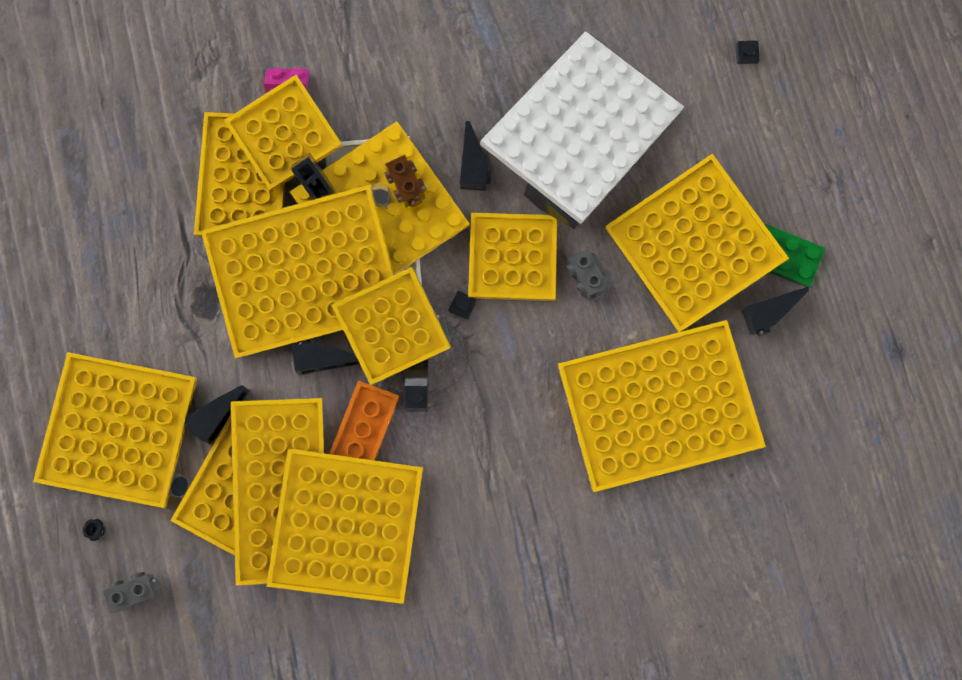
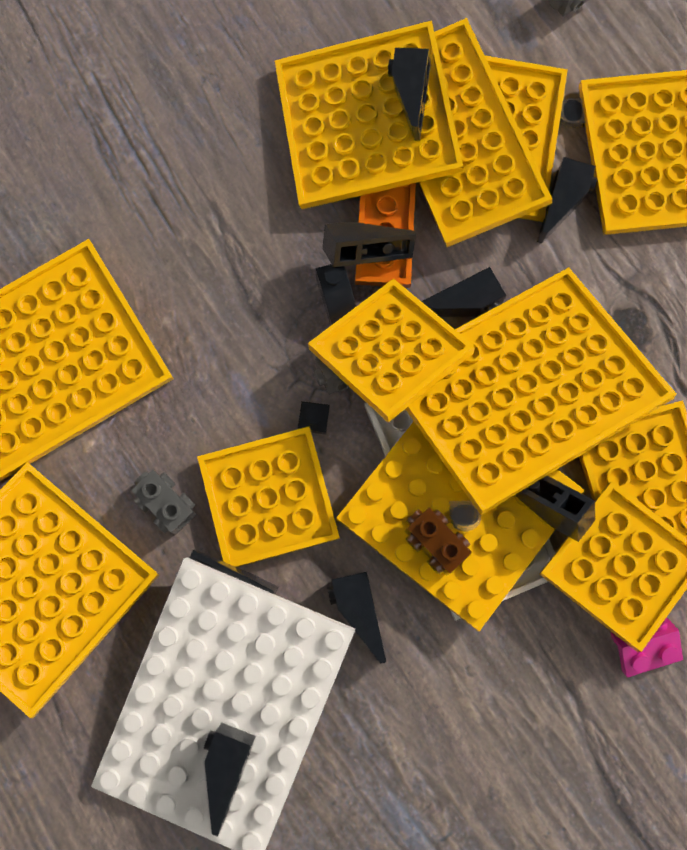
camera: 160 degrees right, 0 degrees up
(89, 525) = (651, 35): black plate -> none
(303, 532) = (411, 78): none -> black slope
(384, 415) = (366, 243): none -> black slope
(588, 88) = (224, 766): none -> black slope

